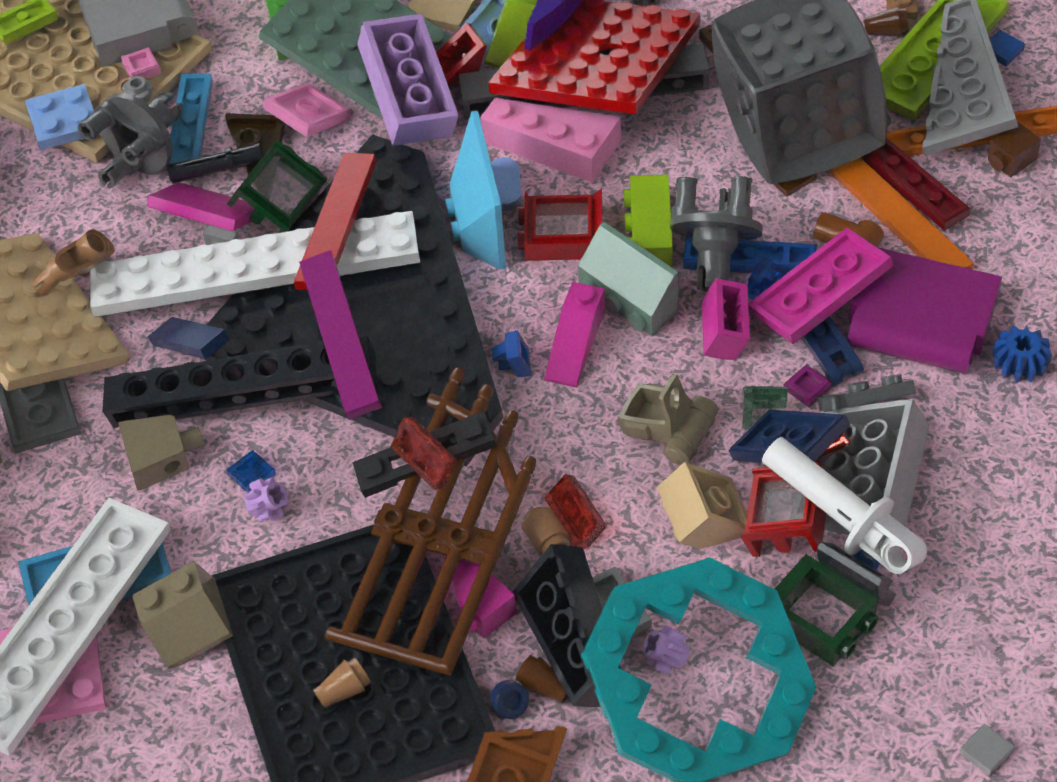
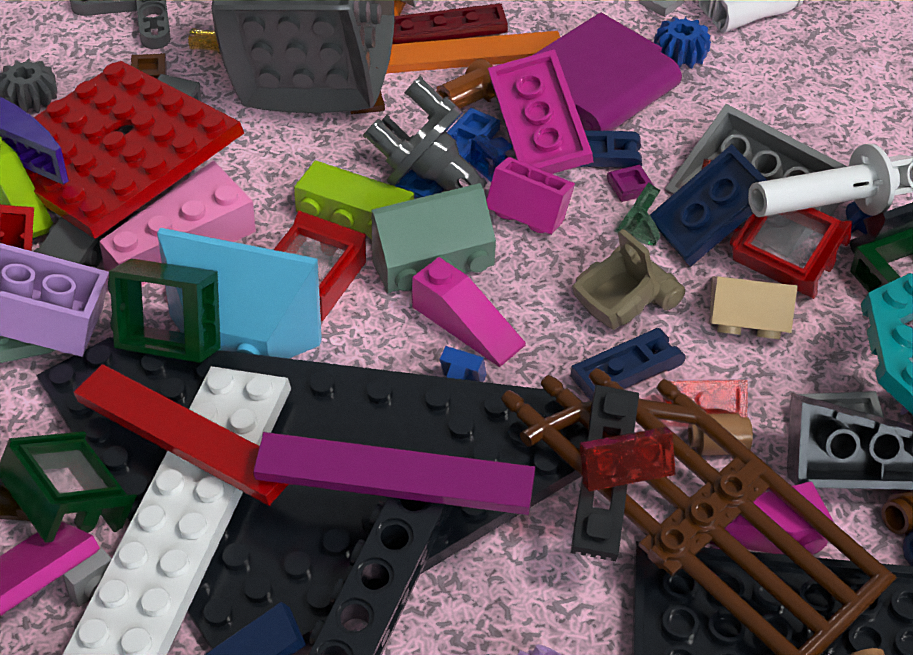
camera: 70 degrees left, 5 degrees down
(438, 160) = (200, 310): none -> dark green window
(588, 453) = (630, 361): none -> dark blue plate
(861, 393) = (673, 145): dark grey plate -> none

